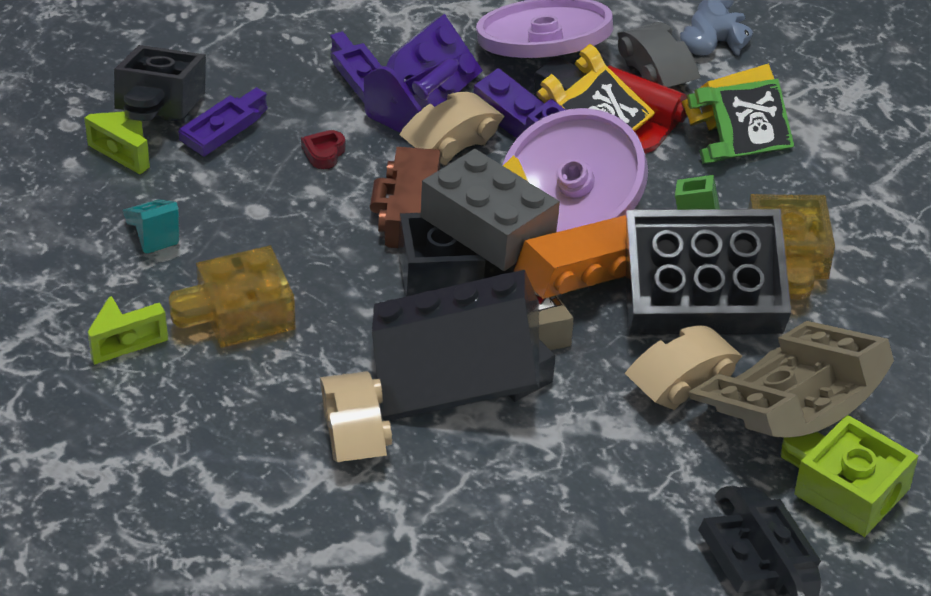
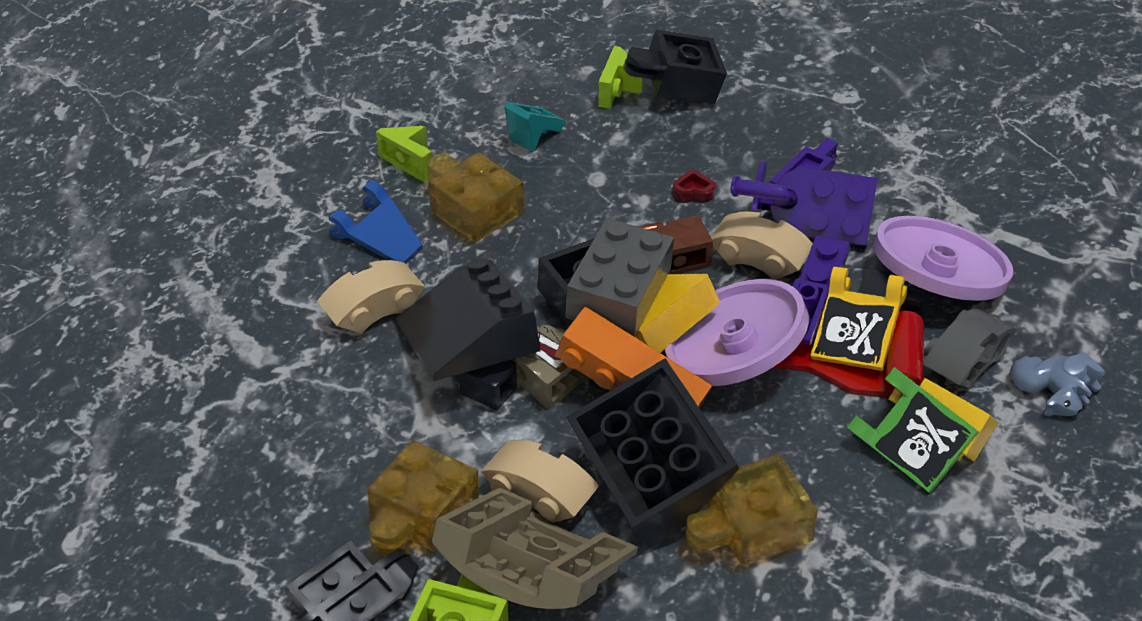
camera: 70 degrees right, 0 degrees up
(223, 121) = (681, 122): dark purple hinge -> none
(232, 390) = (382, 230): none -> blue flag
(669, 456) = (414, 494): none -> clear yellow brick
(696, 193) = (760, 429): bright green brick -> none

